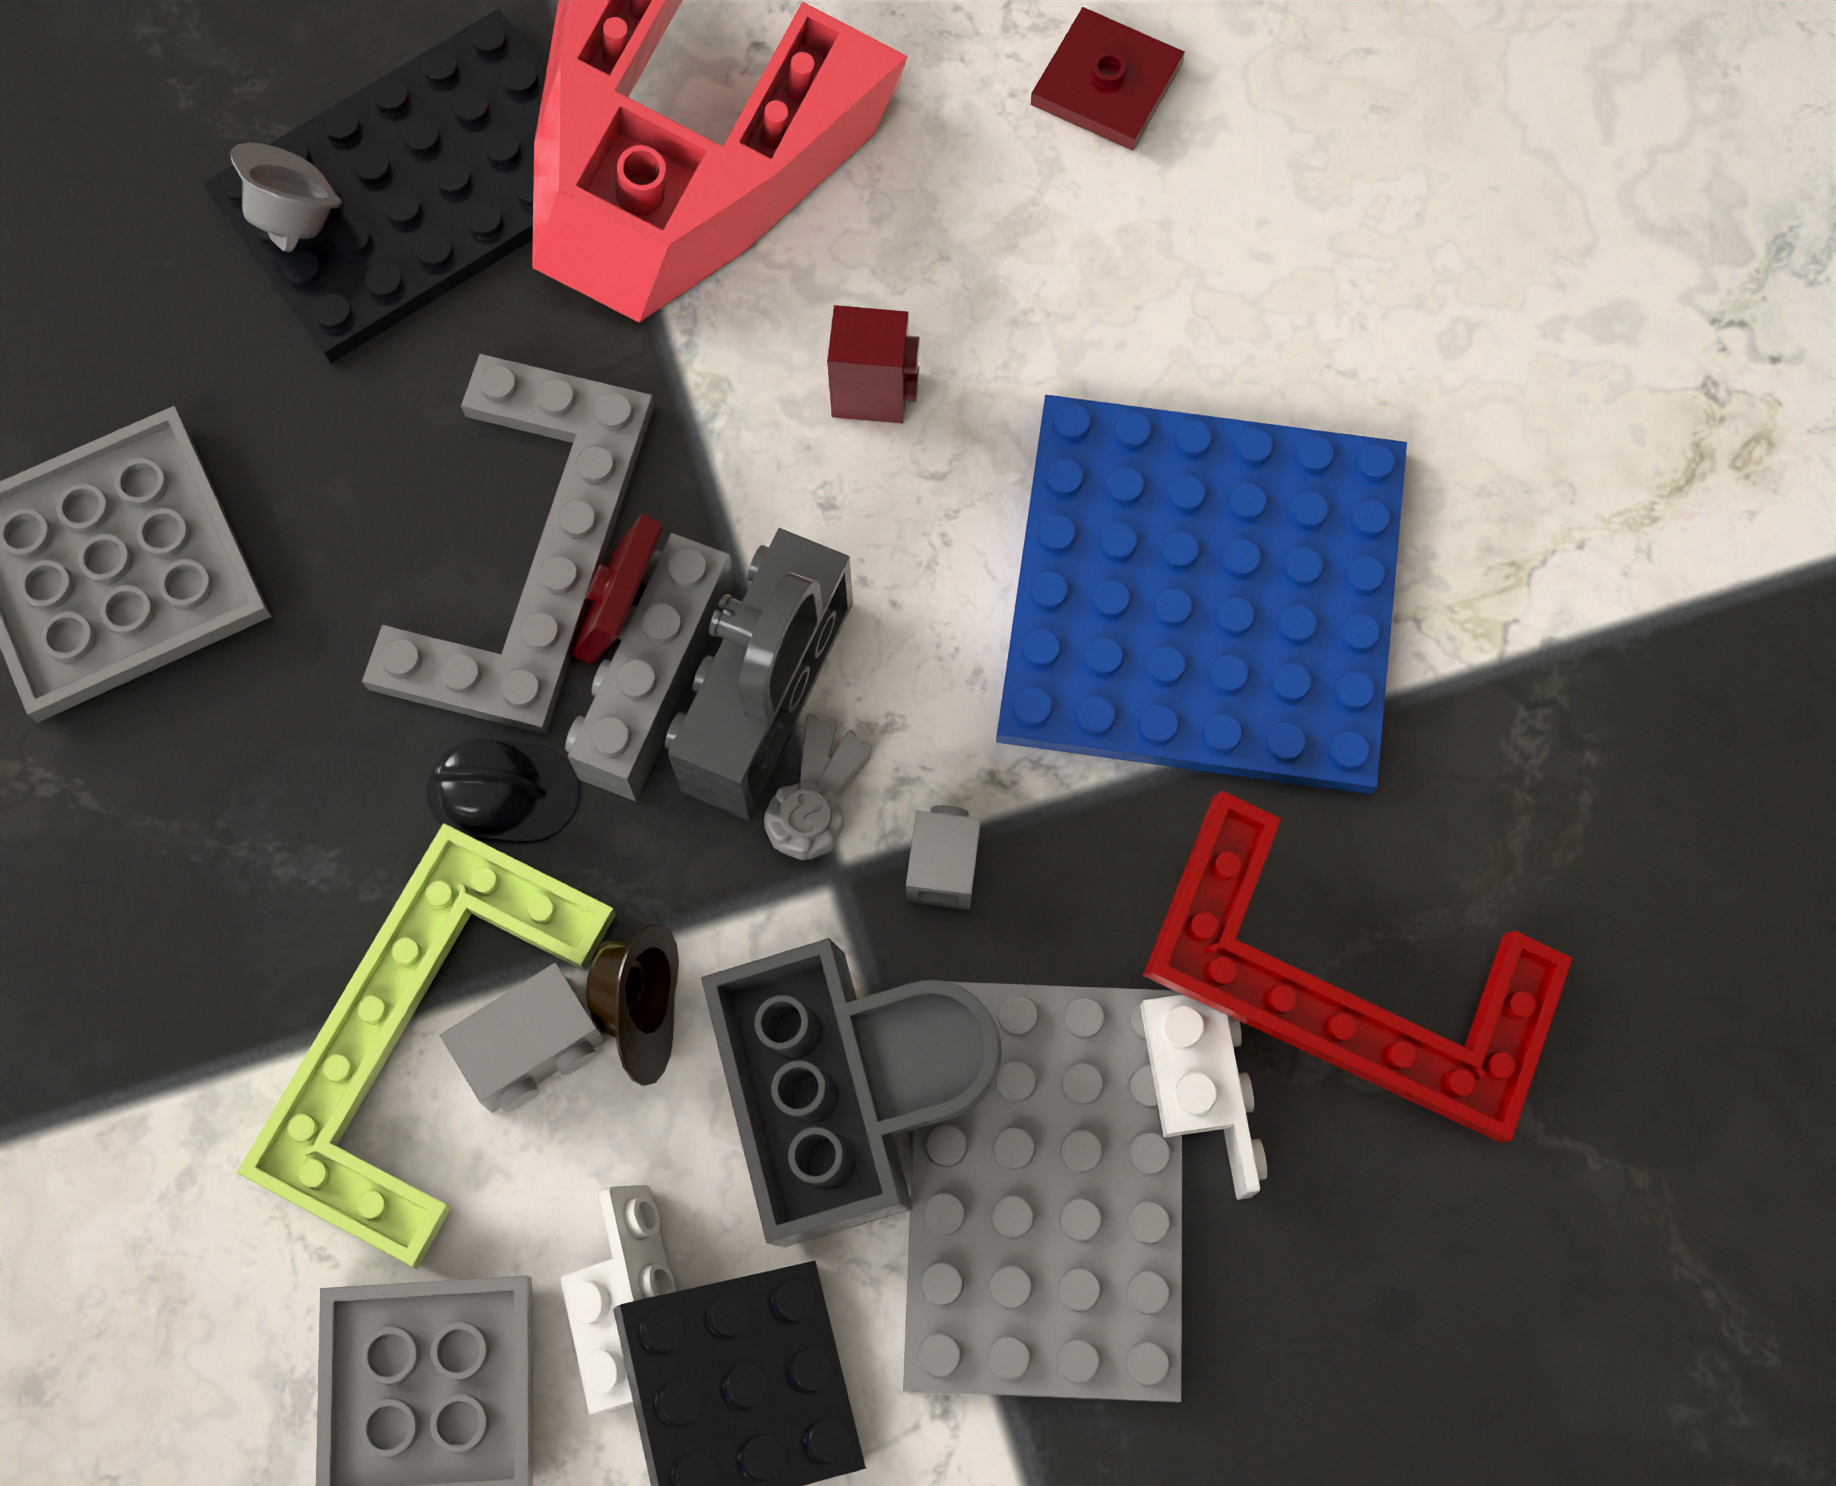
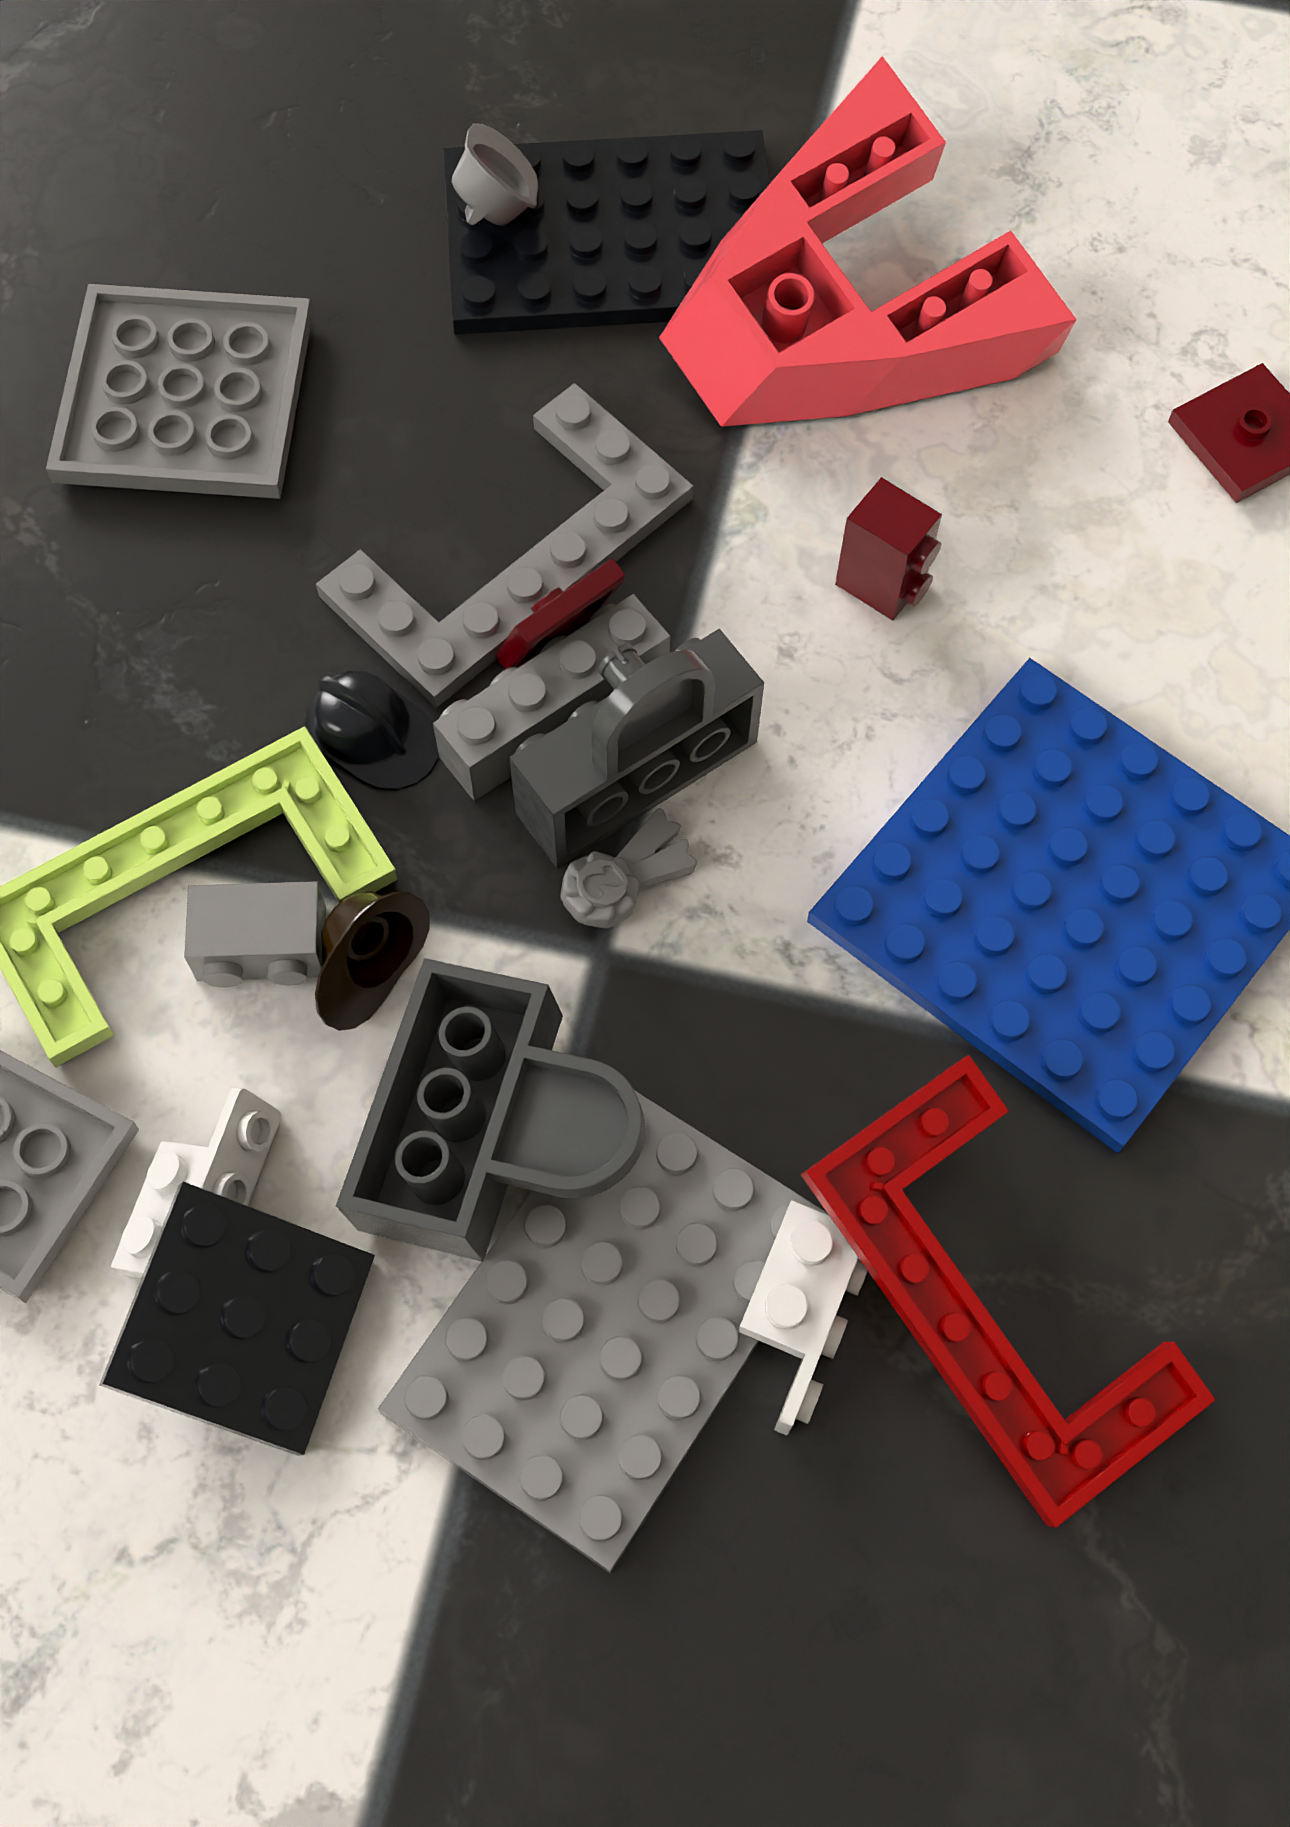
camera: 30 degrees right, 5 degrees down
(943, 857) = (696, 986): light grey brick -> none

